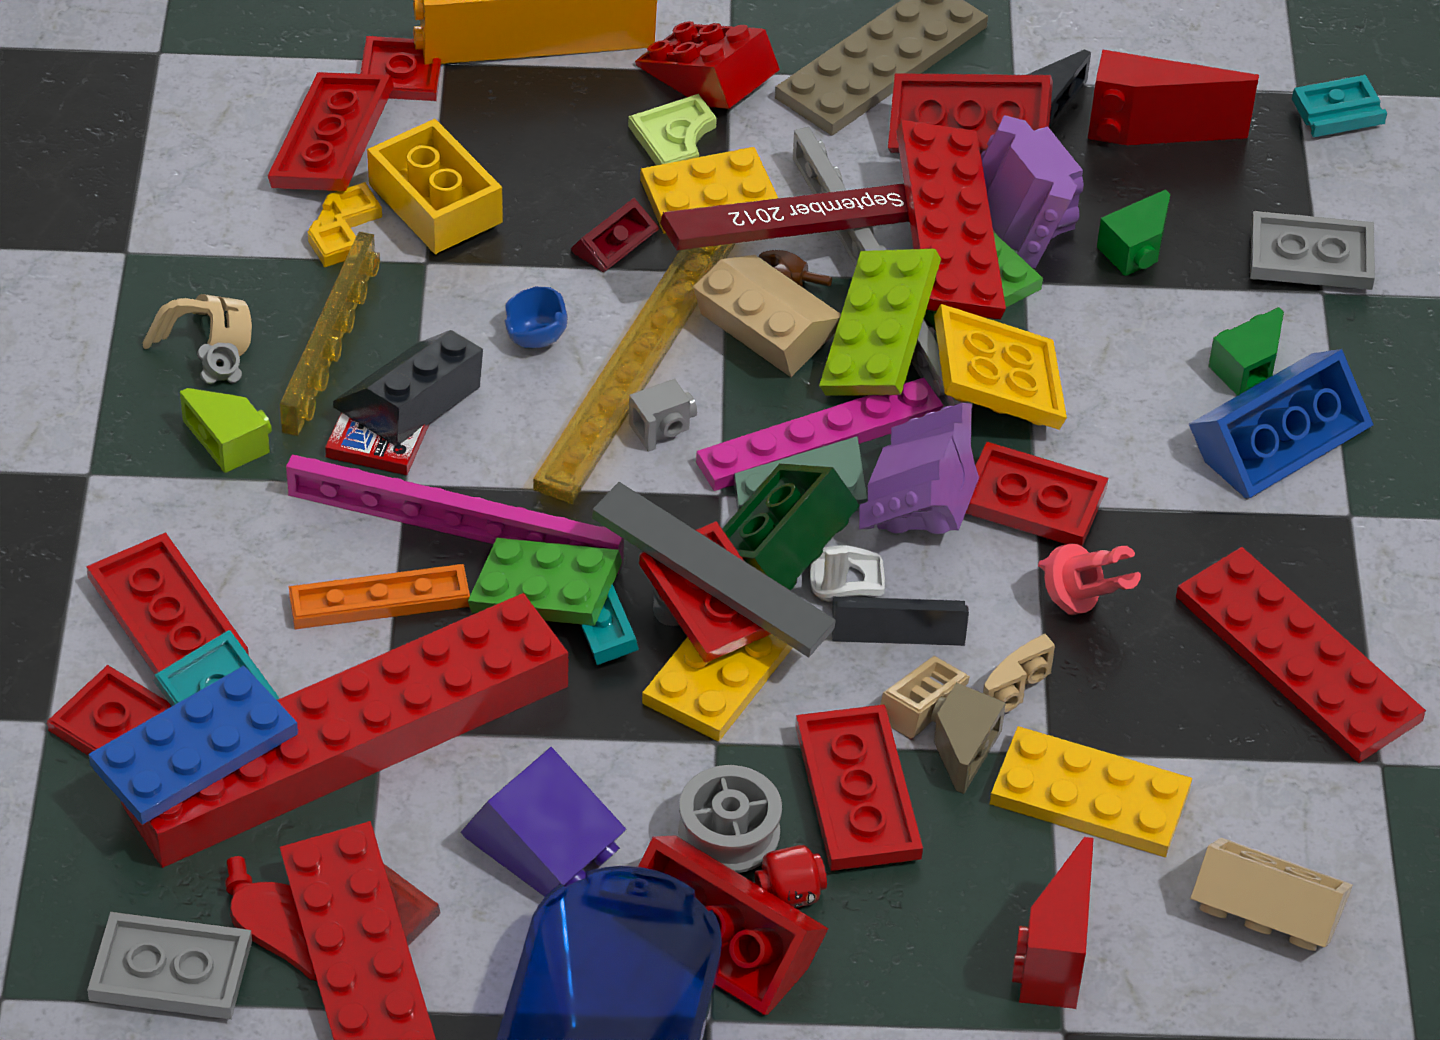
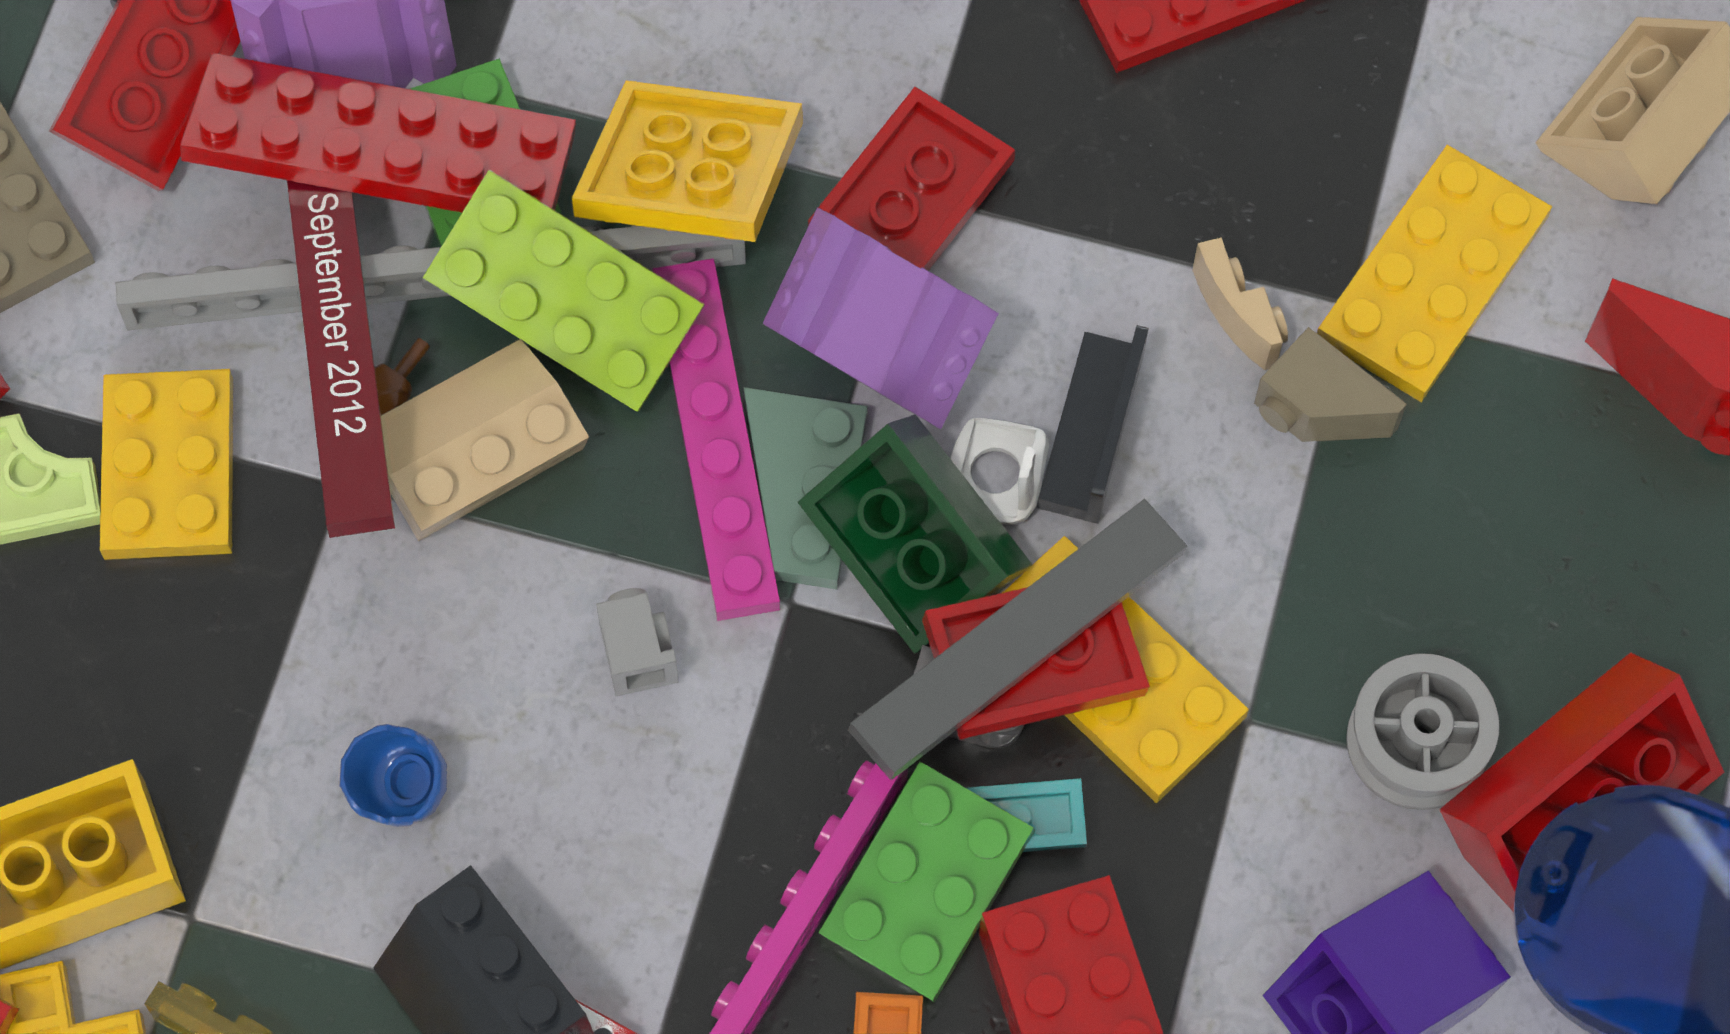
camera: 75 degrees left, 20 degrees up
(616, 236) = (224, 624): dark red slope -> none
(626, 373) = (508, 653): clear yellow plate -> none
(793, 875) = (1524, 678): red head -> none
(858, 787) = (1382, 555): red plate -> none
(915, 696) = (1254, 463): tan slope -> none
(1076, 576) = (1098, 173): coral piece -> none

